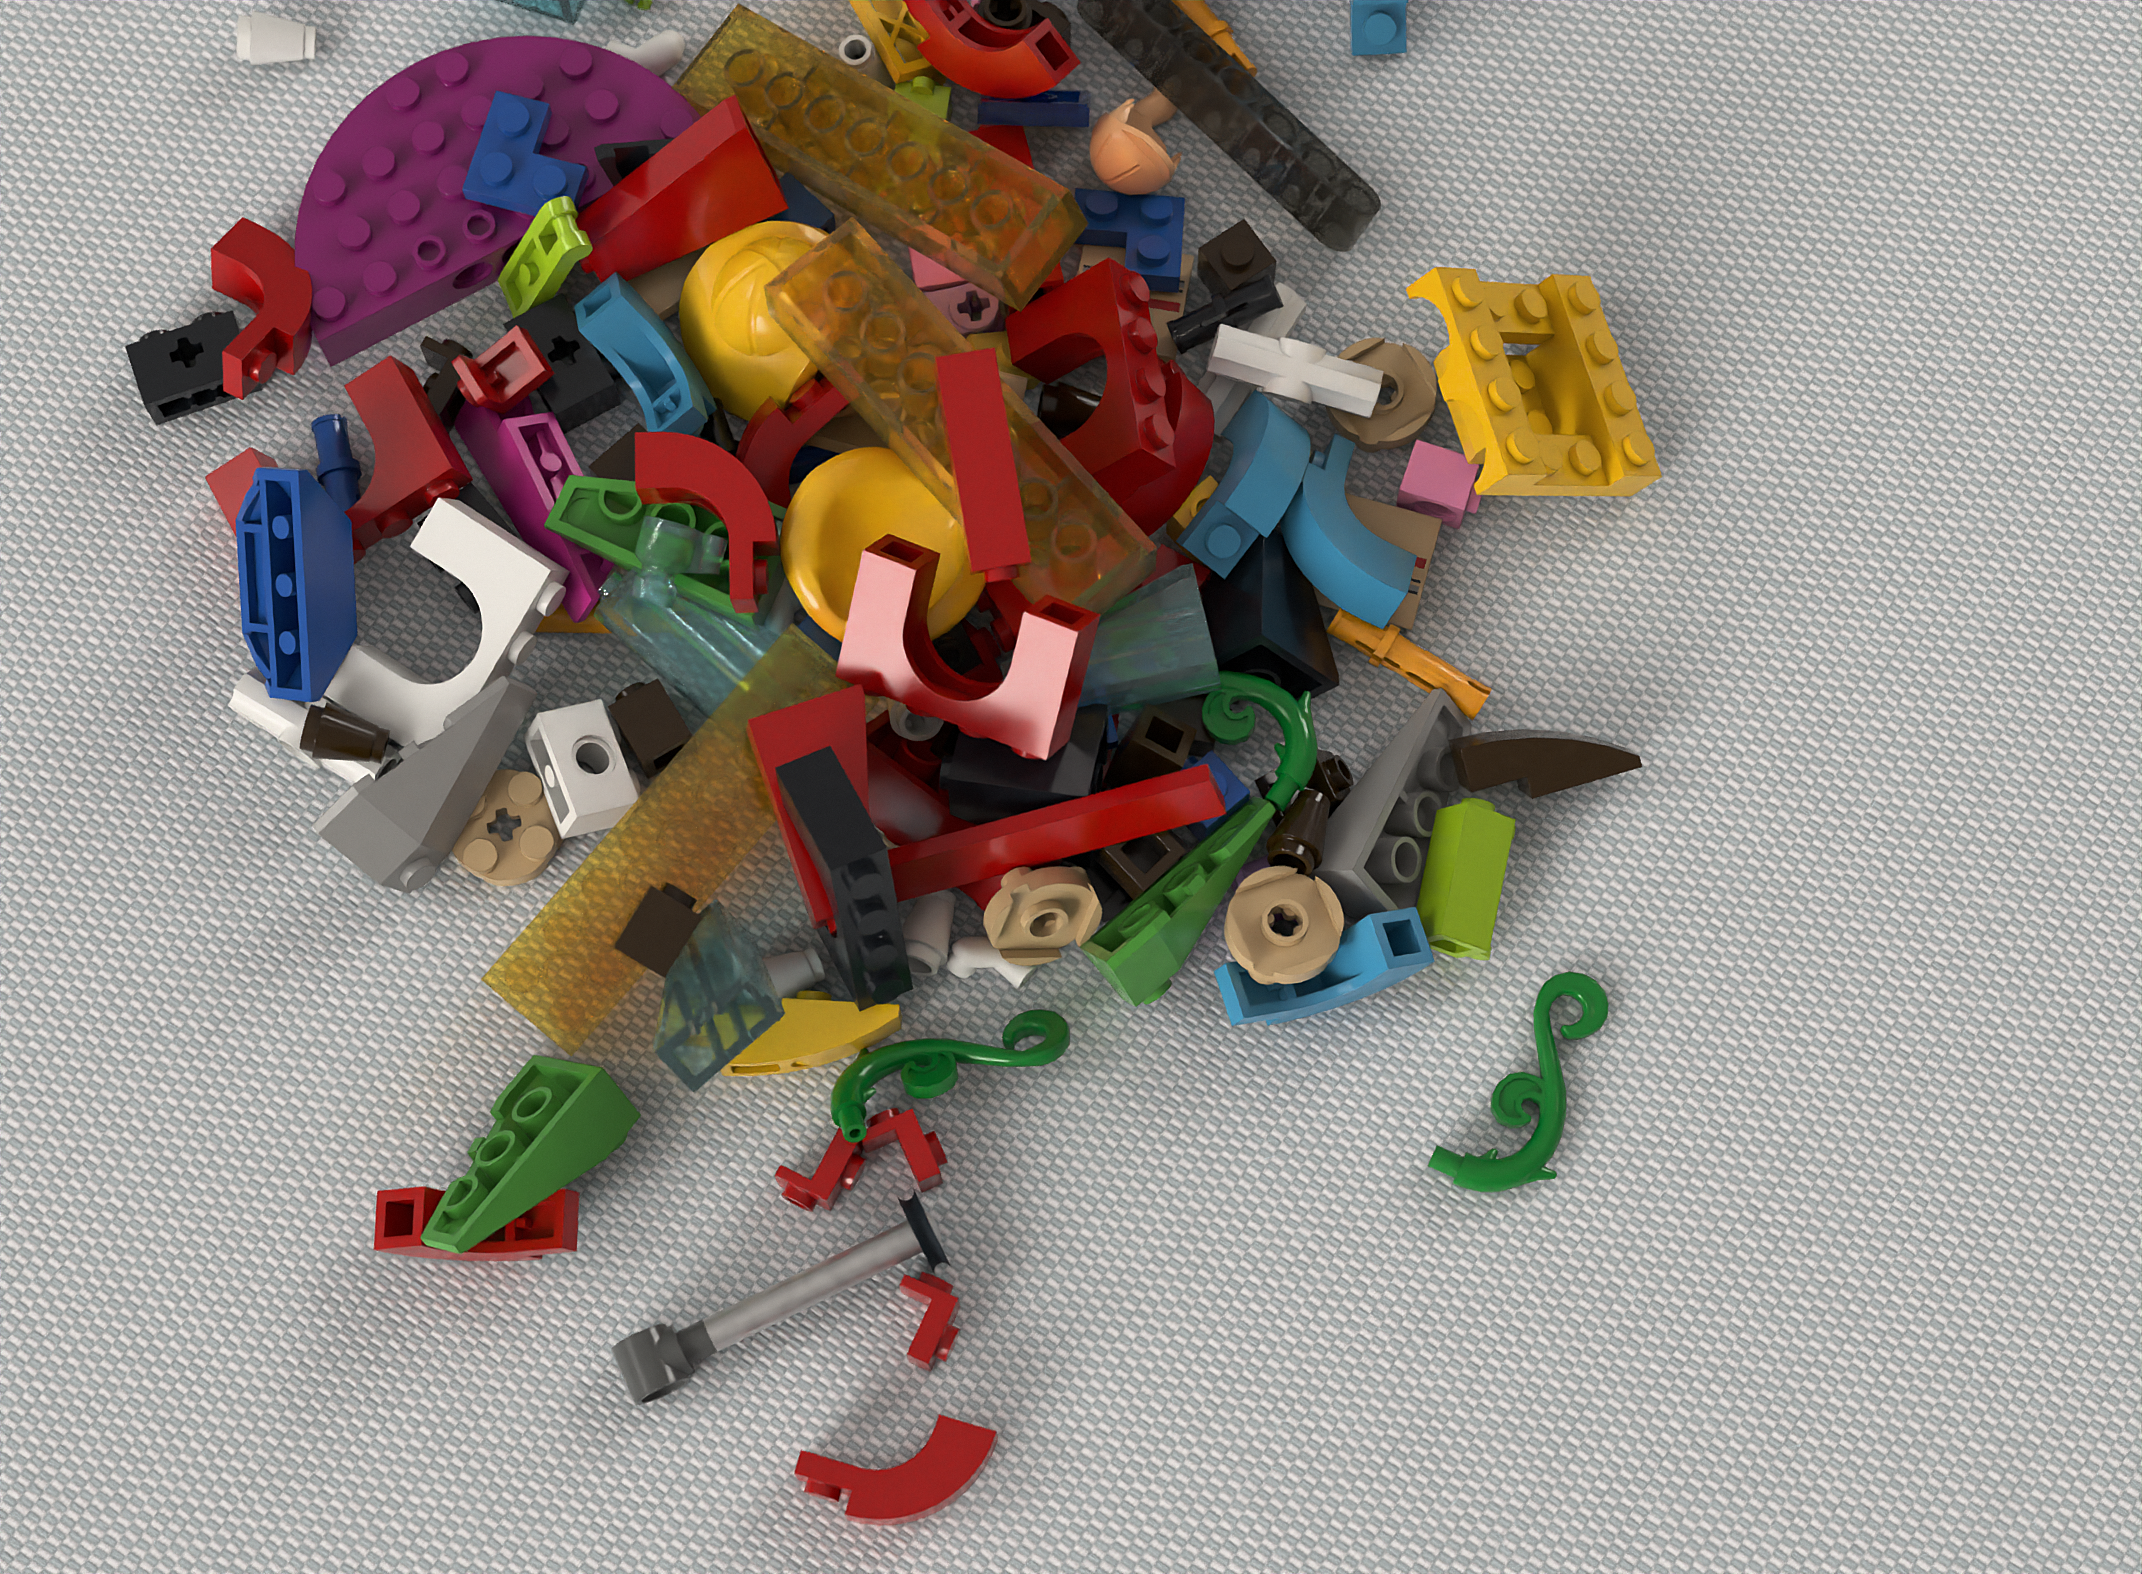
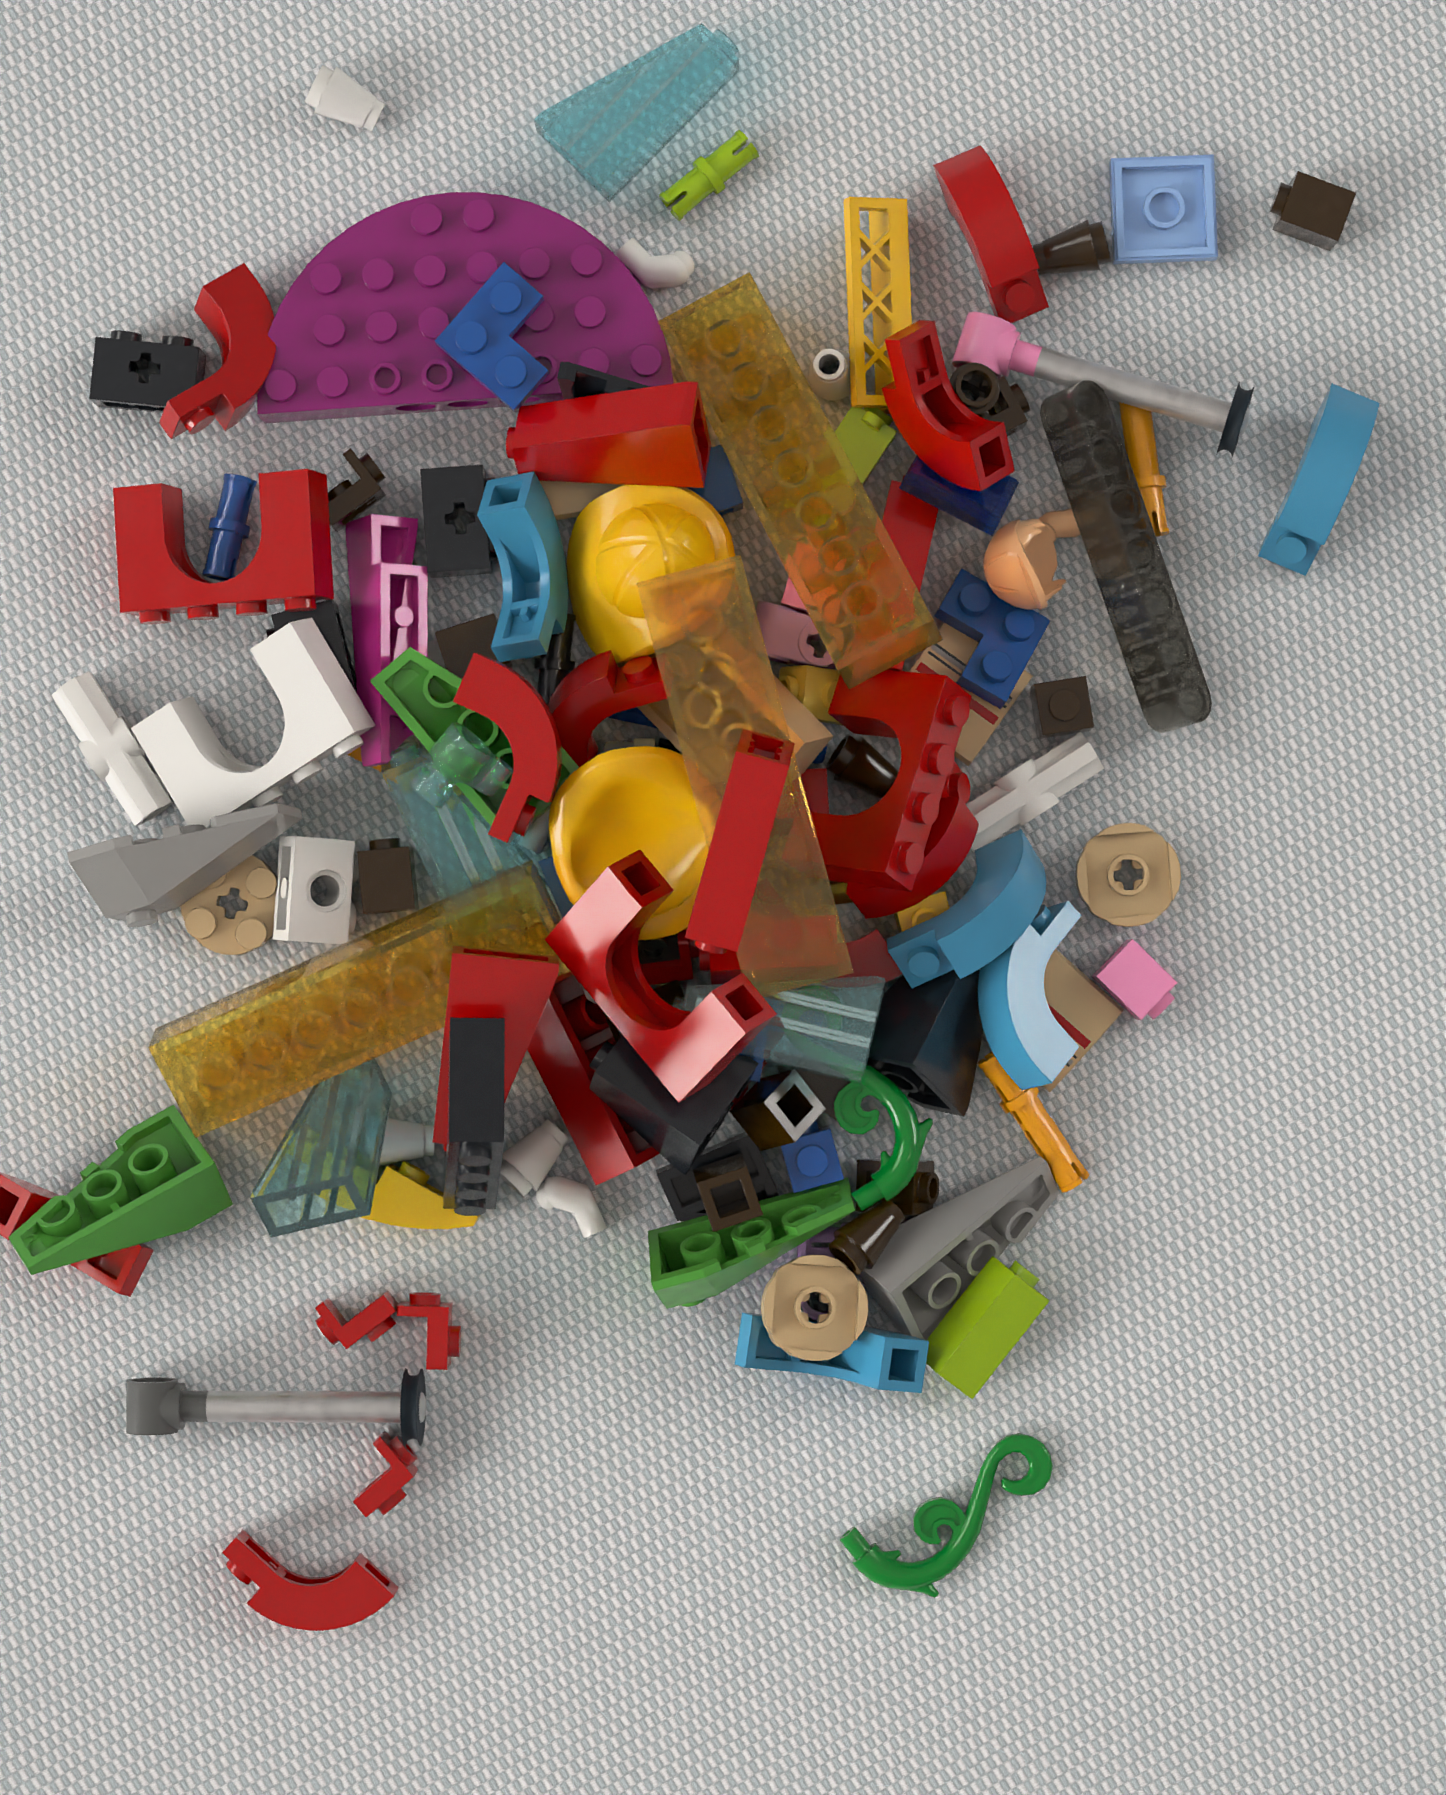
camera: 25 degrees right, 15 degrees up
(295, 582) = (142, 635): blue wedge -> none
(342, 736) = (128, 778): dark brown cone -> none
(503, 372) = (397, 519): red bracket -> none
(544, 256) = (477, 432): lime plate -> none
(659, 928) = (306, 1078): dark brown brick -> none
(941, 1058) = (485, 1287): green plant -> none
(1055, 832) = (657, 1152): red tile -> none
(1057, 895) = (623, 1196): tan plate -> none
(1260, 296) = (1027, 754): black pin -> none
(1294, 371) = (1059, 834): white piece -> none
(1537, 759) = (1096, 1256): dark brown slope -> none
(1543, 418) = (1254, 966): yellow piece -> none

